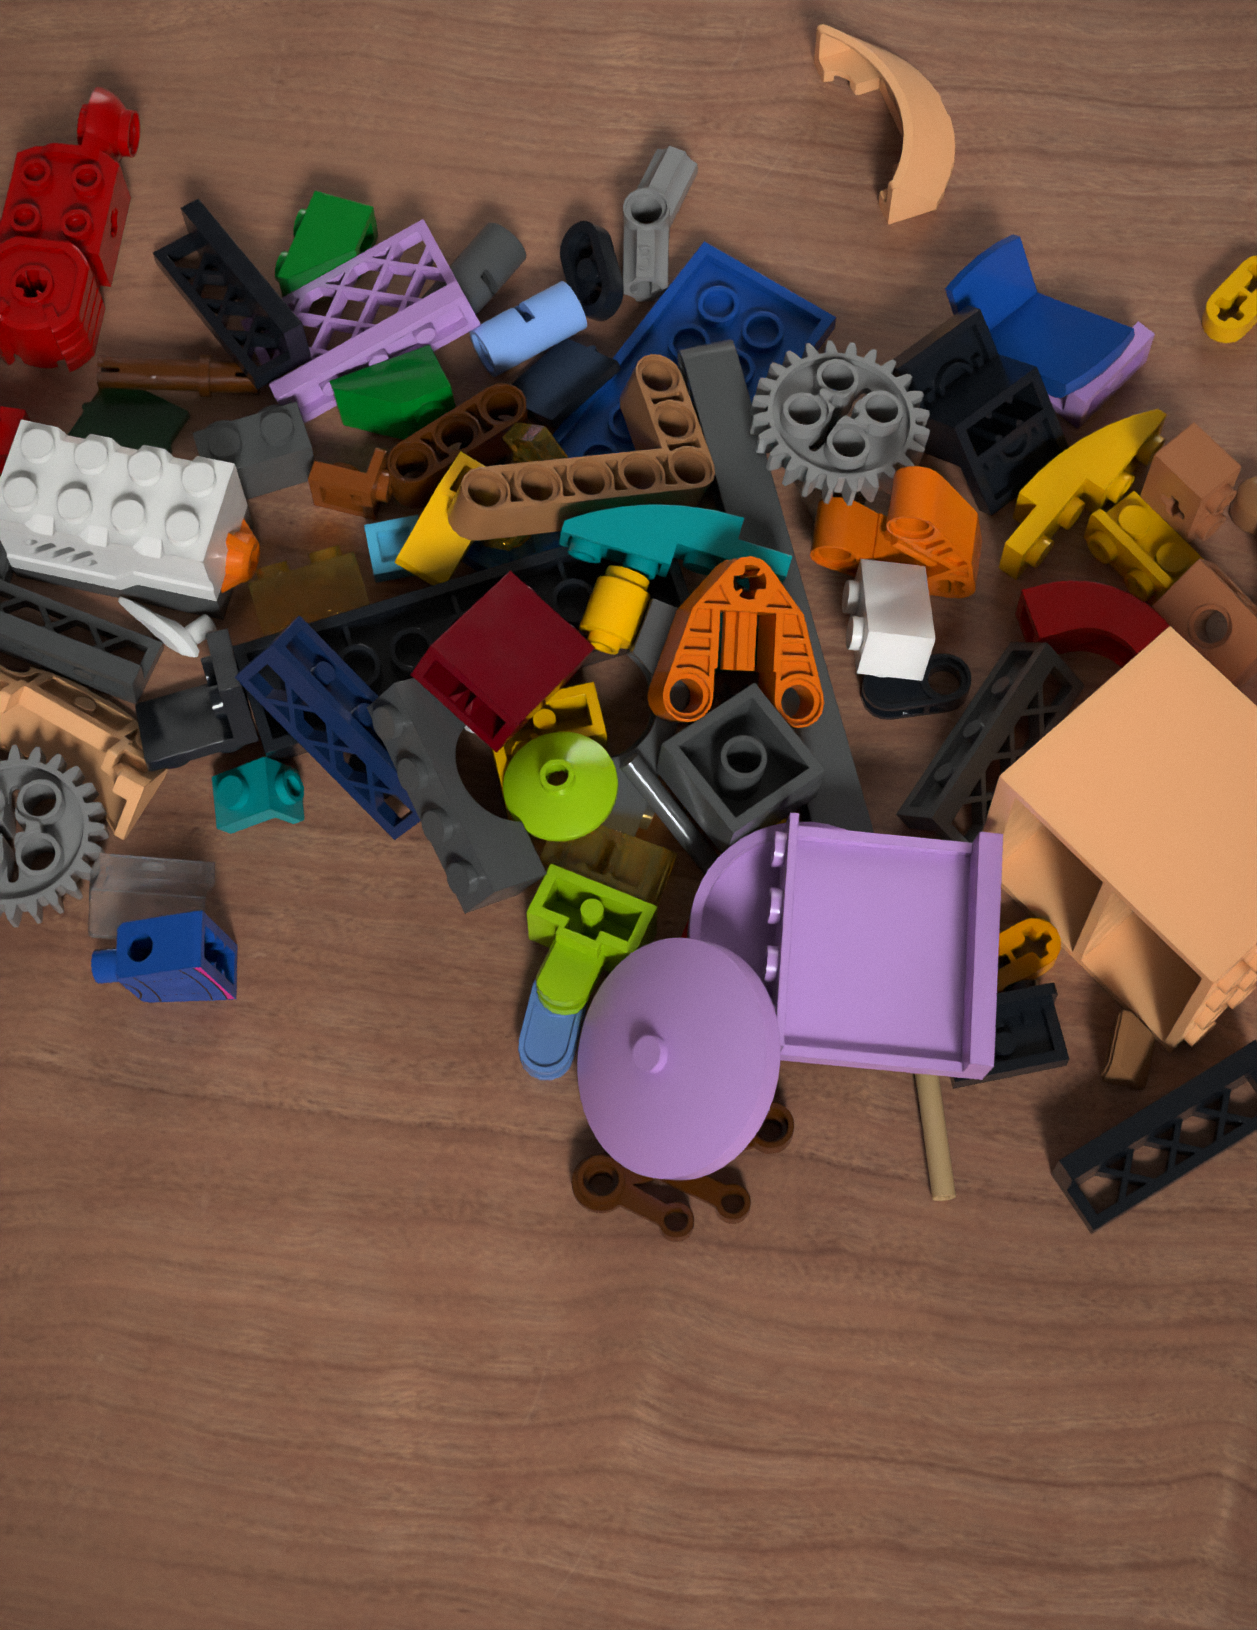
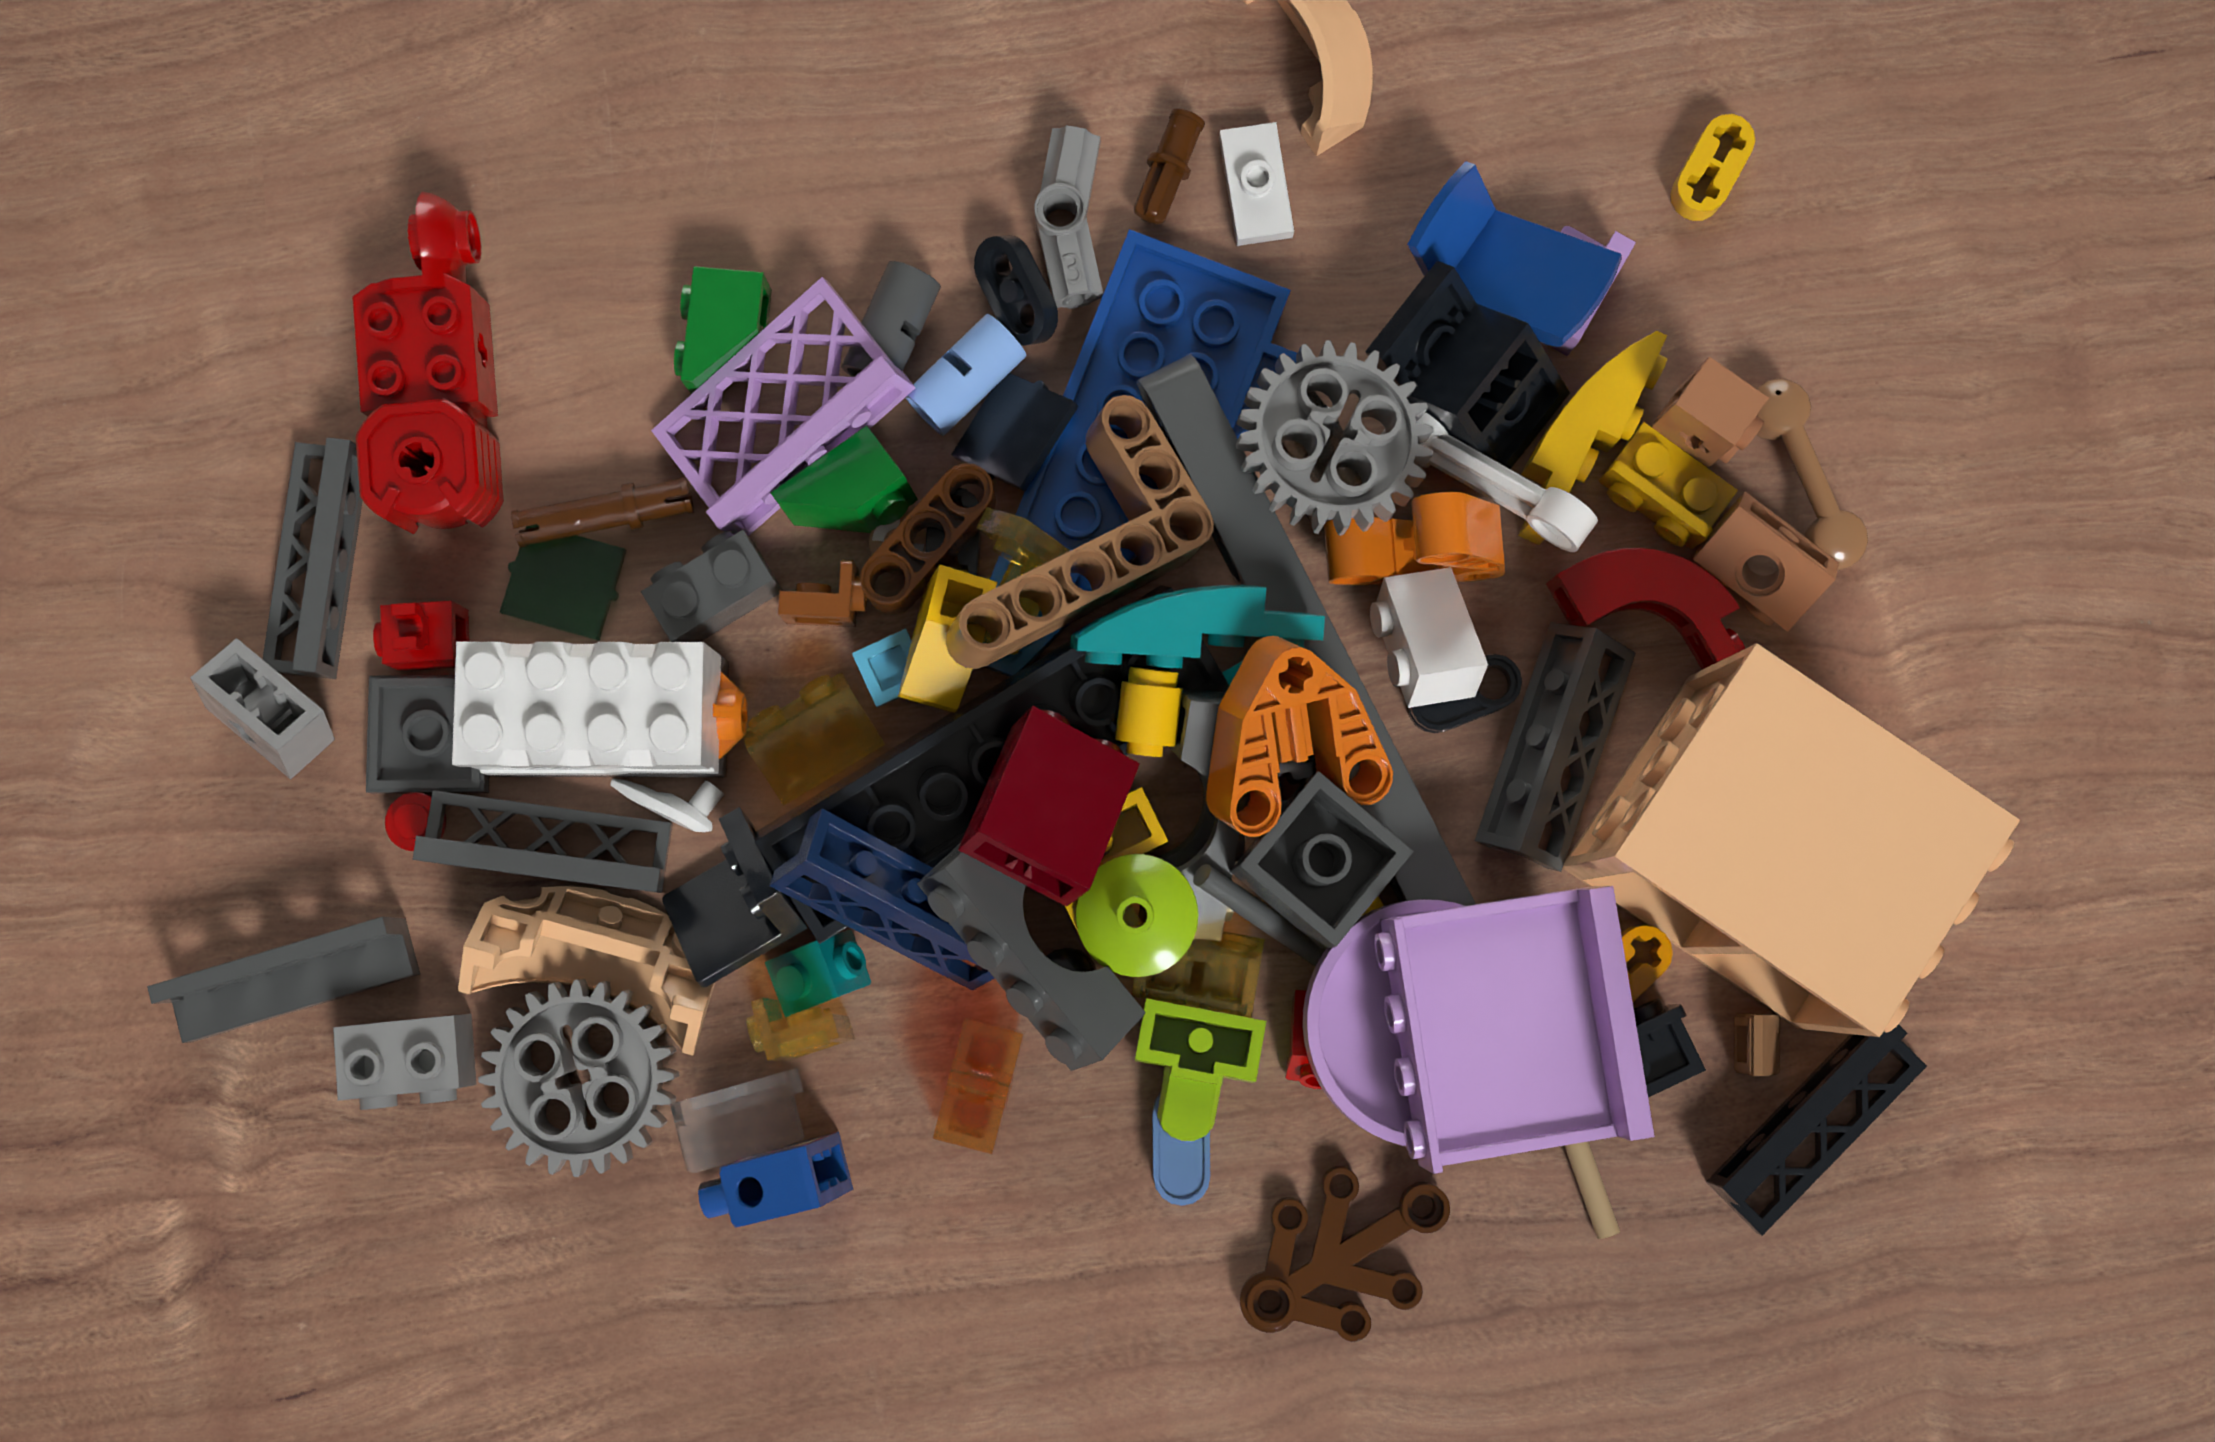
camera: 15 degrees left, 15 degrees up
(226, 832) = (796, 1034): none -> clear yellow bracket
(244, 283) = (643, 392): black fence -> none
(378, 915) = (979, 1085): none -> clear orange brick
(678, 1059) = (1330, 1186): lavender dish -> none
(753, 202) = (1168, 166): none -> reddish brown axle
(827, 233) = (1256, 184): none -> white plate
(1027, 532) = (1550, 512): none -> white piece

